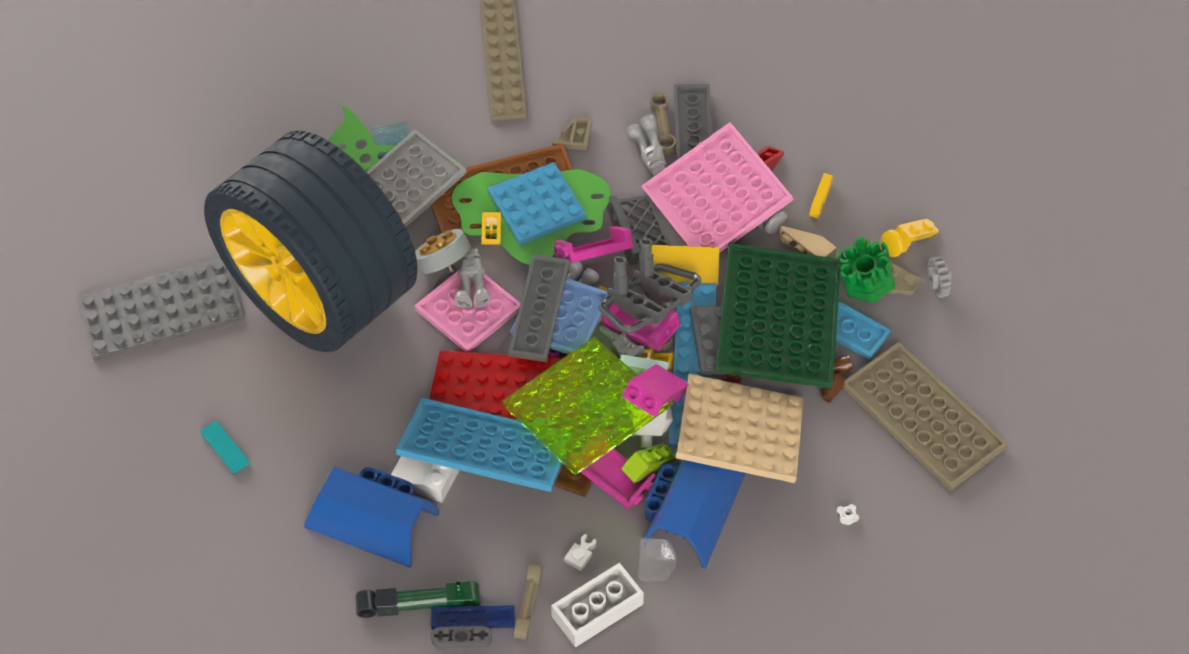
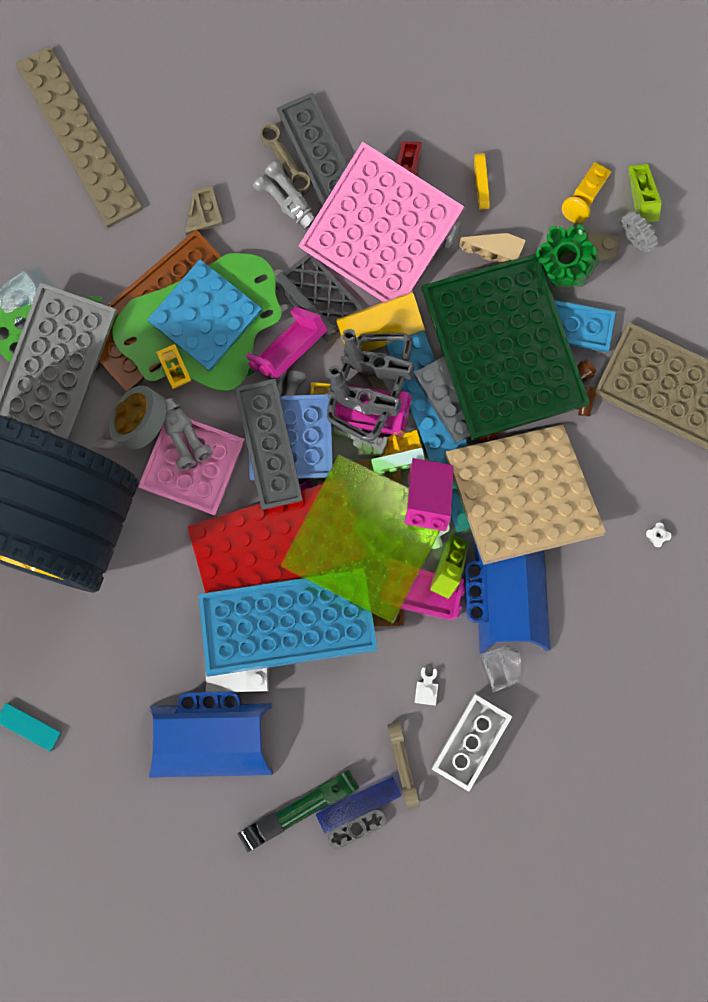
camera: 20 degrees left, 25 degrees up
(959, 254) = (644, 192): none -> lime slope

